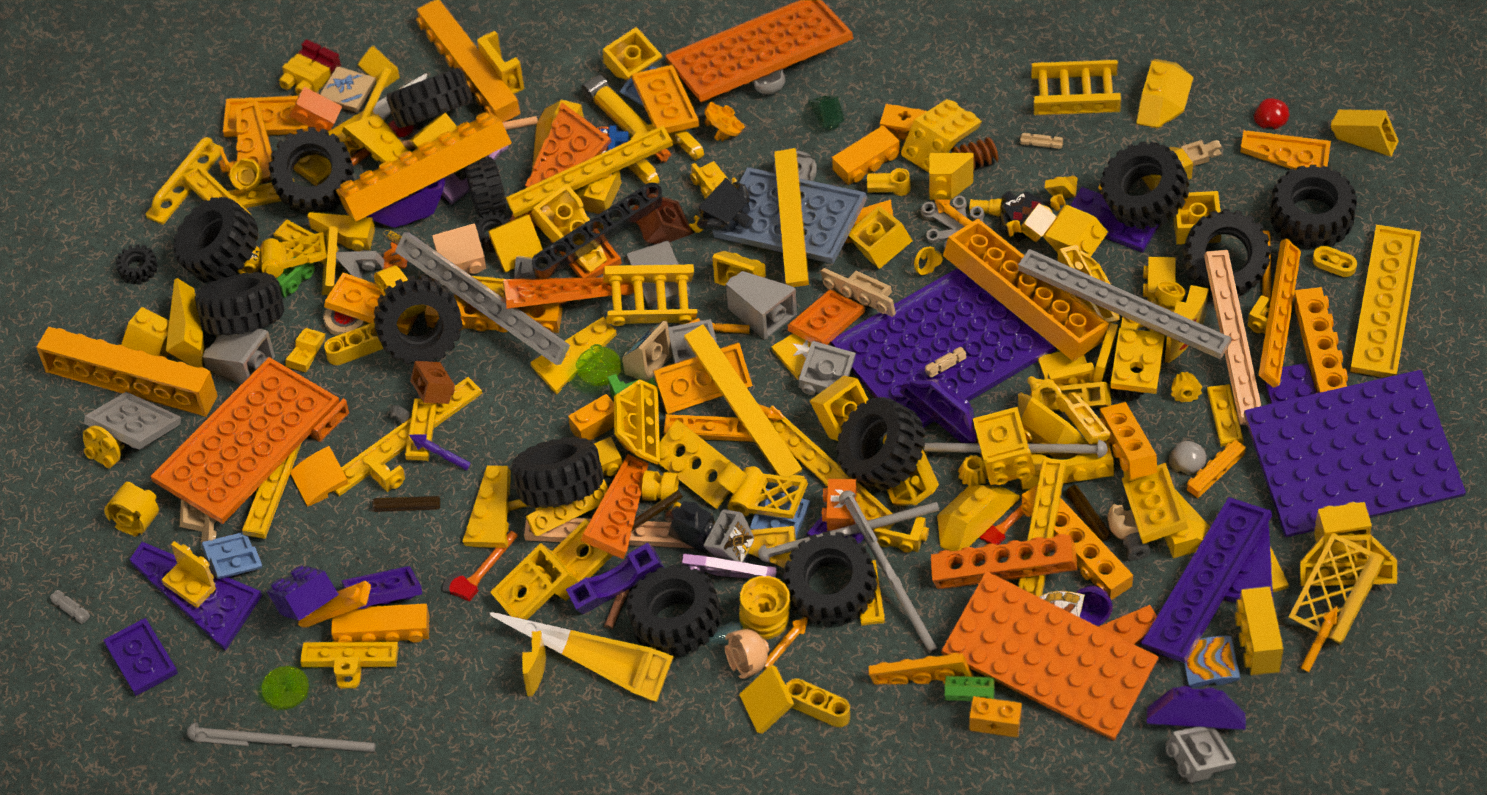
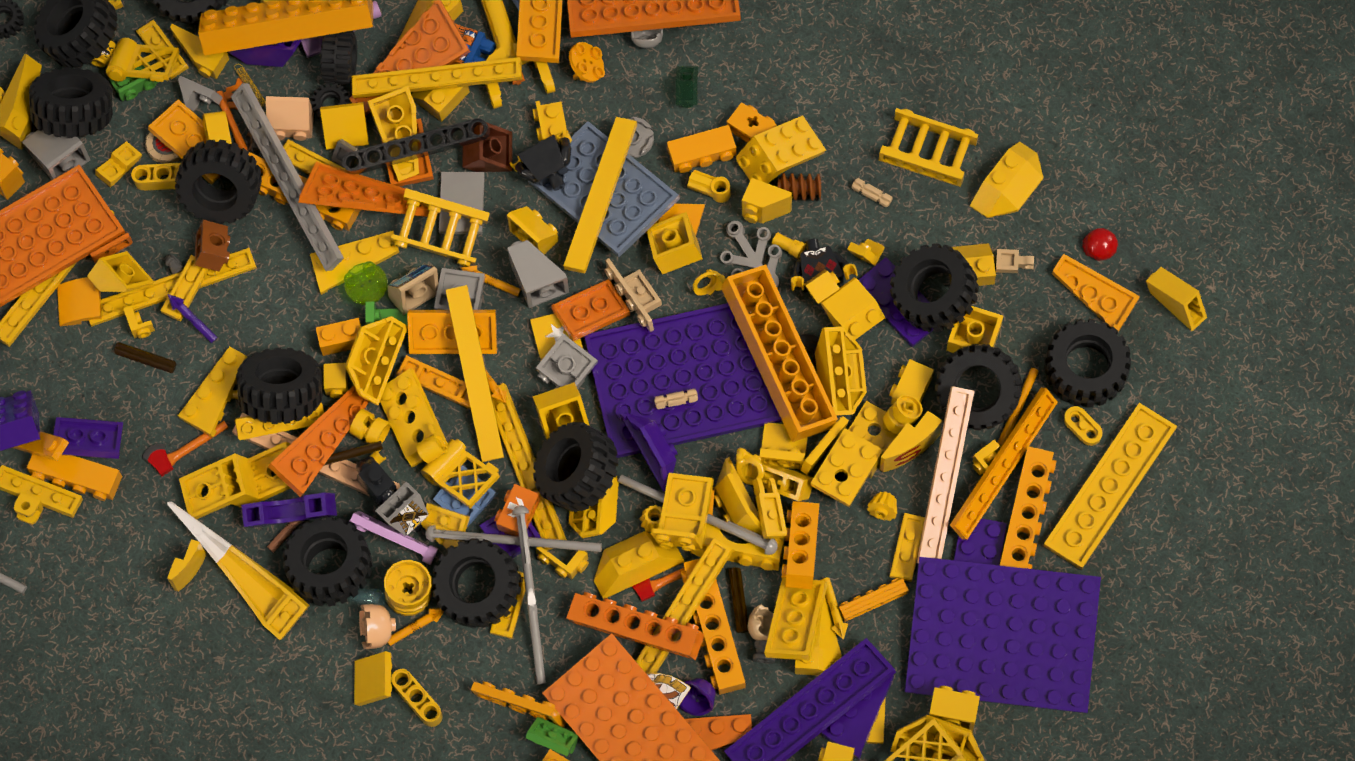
camera: 20 degrees right, 15 degrees up
(330, 261) = (170, 86): yellow tile -> none
(350, 434) = (119, 274): none -> yellow slope
(943, 206) = (747, 231): light orange piece -> none
(1124, 304) = (855, 409): light grey plate -> none
(1187, 457) = (853, 579): light grey hair -> none
(1195, 501) = (839, 627): none -> yellow piece

